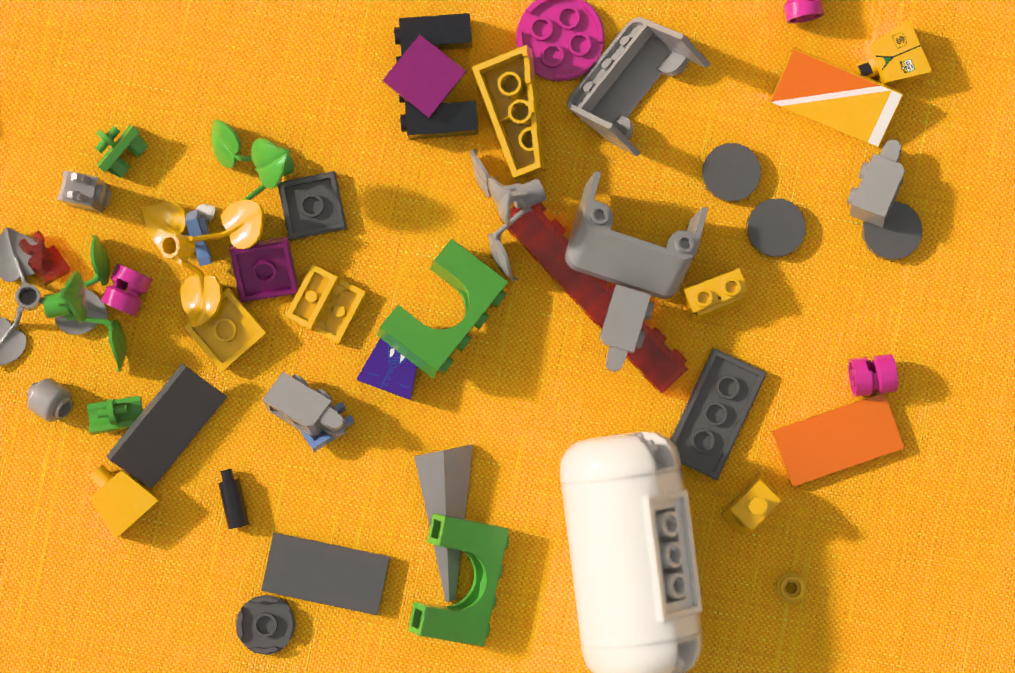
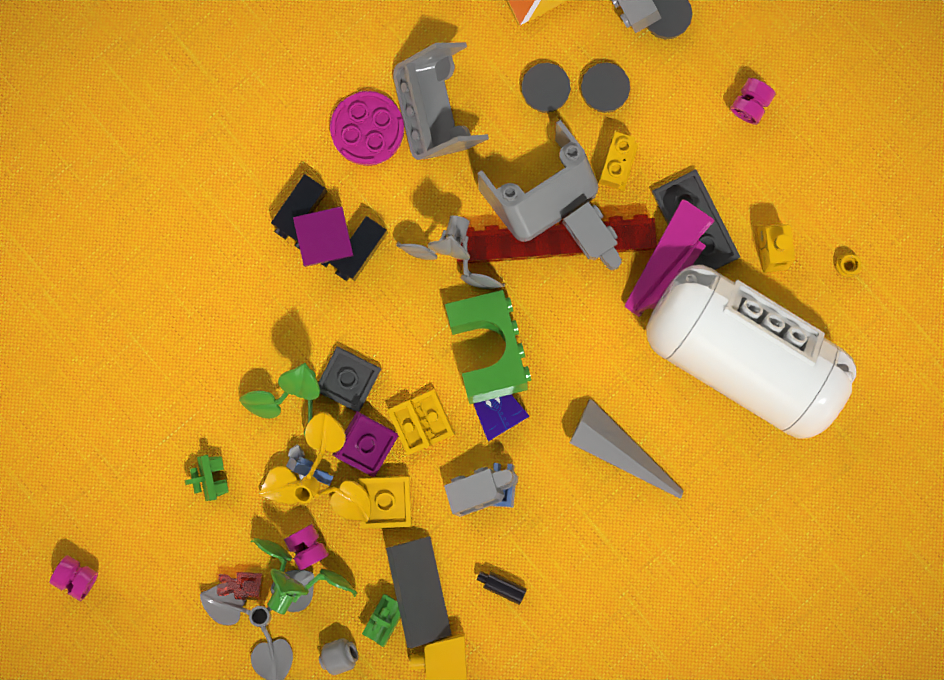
camera: 50 degrees left, 0 degrees up
(84, 192) = (218, 523): light grey hinge -> none
(265, 624) = (601, 630): dark grey tile -> none
(325, 573) = (599, 563): dark grey tile -> none
(469, 618) = (704, 491): bright green arch -> none
(512, 103) = (386, 193): yellow wedge -> none
(670, 413) = (674, 252): none -> dark pink wedge
(838, 439) = (775, 158): orange tile -> none

